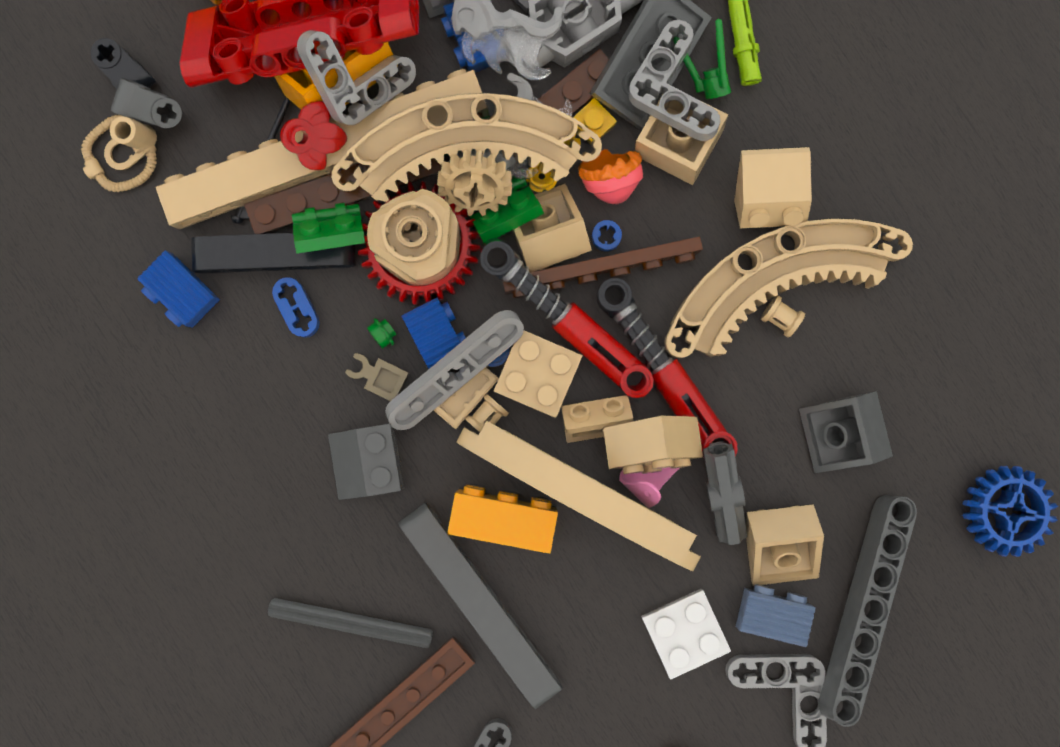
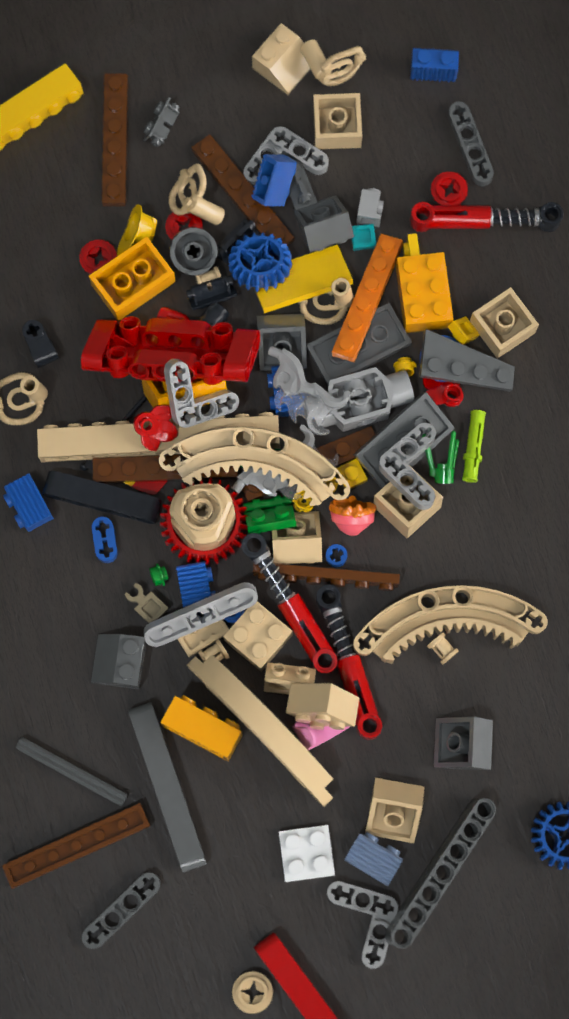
camera: 20 degrees right, 10 degrees down
(141, 103) = (46, 371): dark grey piece -> none
(327, 228) = (145, 491): green plate -> none
(490, 178) = (243, 486): tan gear -> none
(725, 493) = (363, 758): dark grey piece -> none
(773, 187) = (460, 556): tan slope -> none

